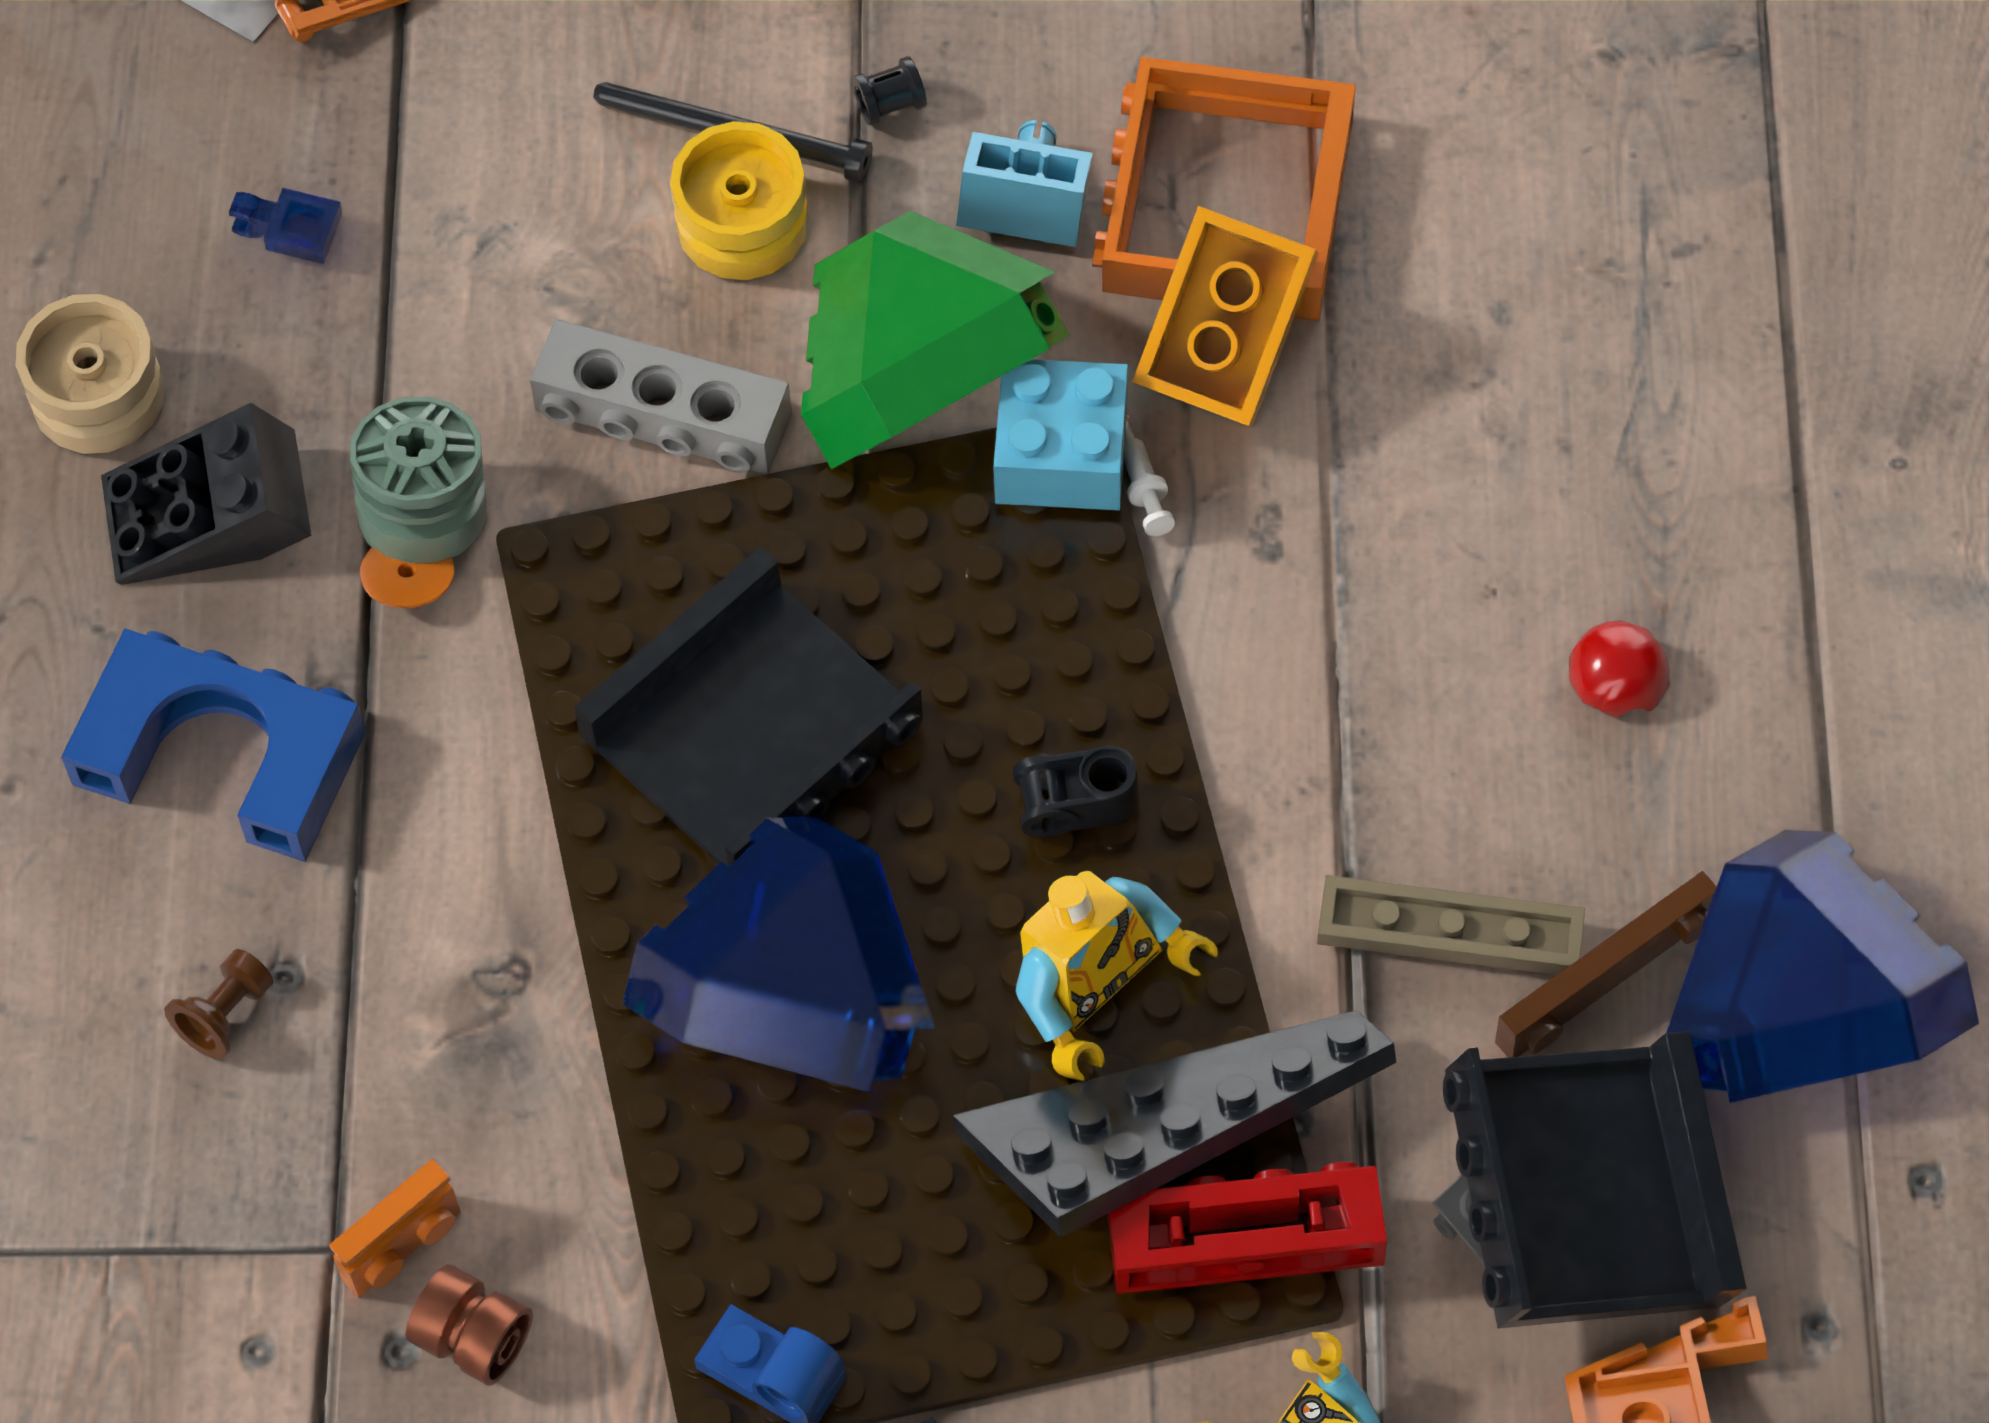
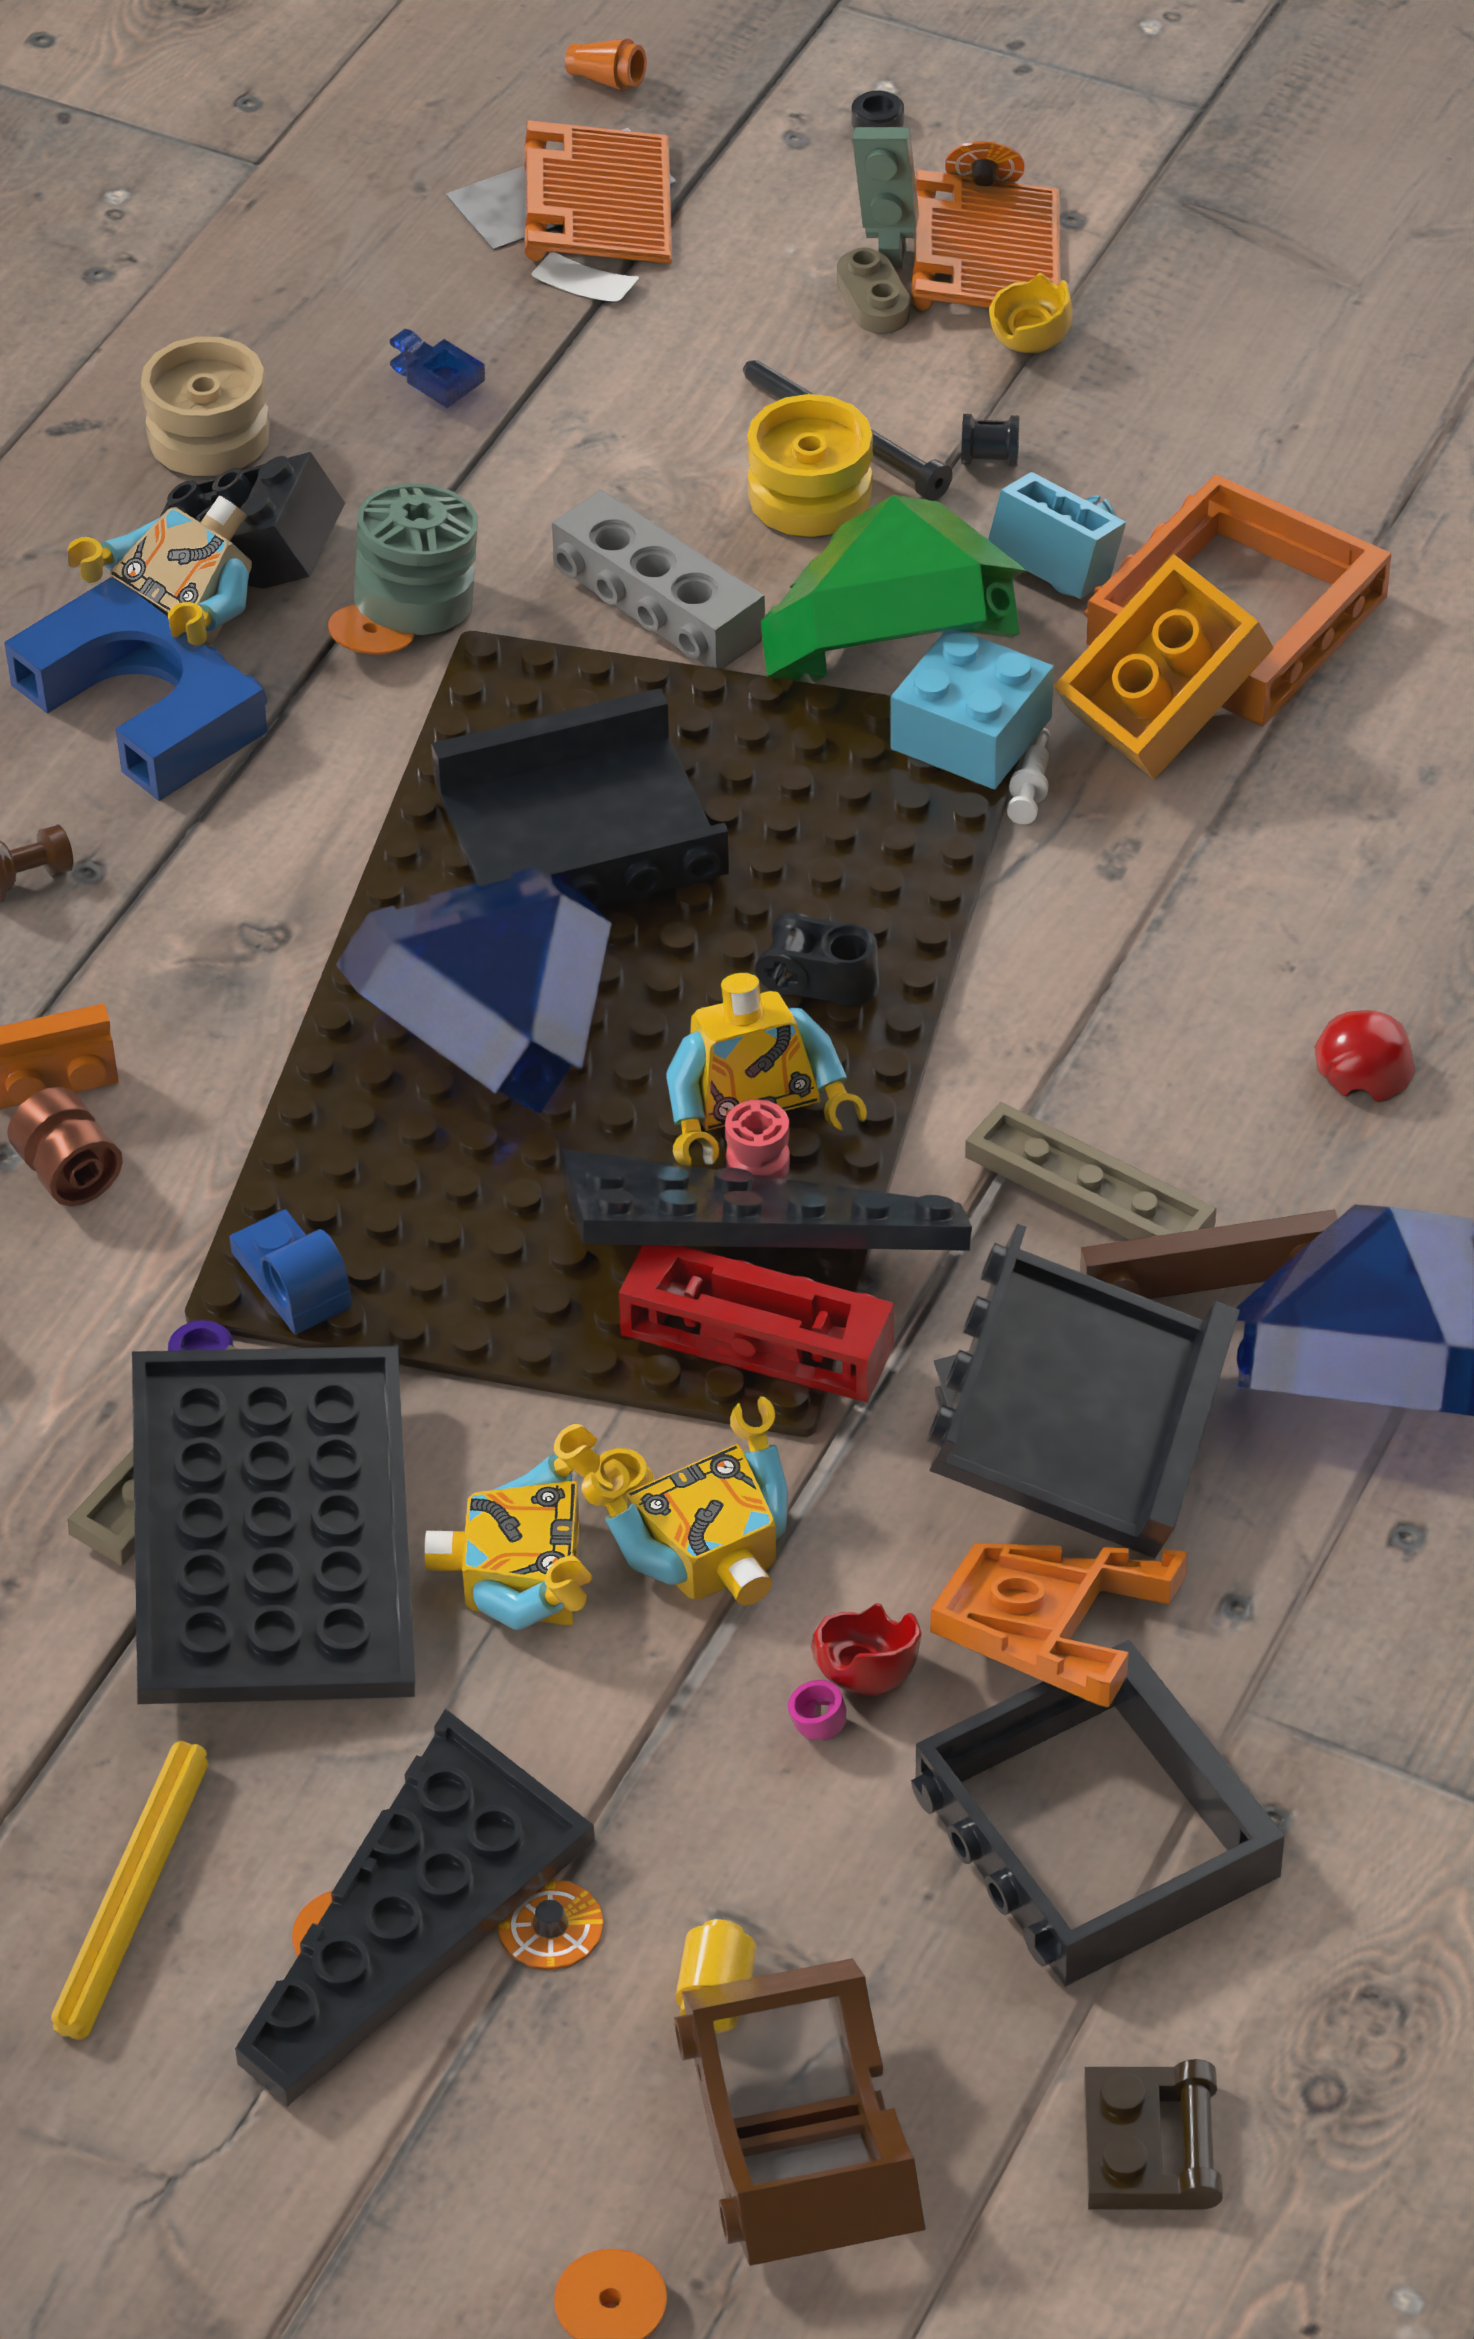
camera: 25 degrees right, 15 degrees down
(191, 594) = (178, 566): none -> torso
(369, 45) = (581, 279): none -> white sticker
(1138, 1042) = (758, 1138): none -> coral wheel

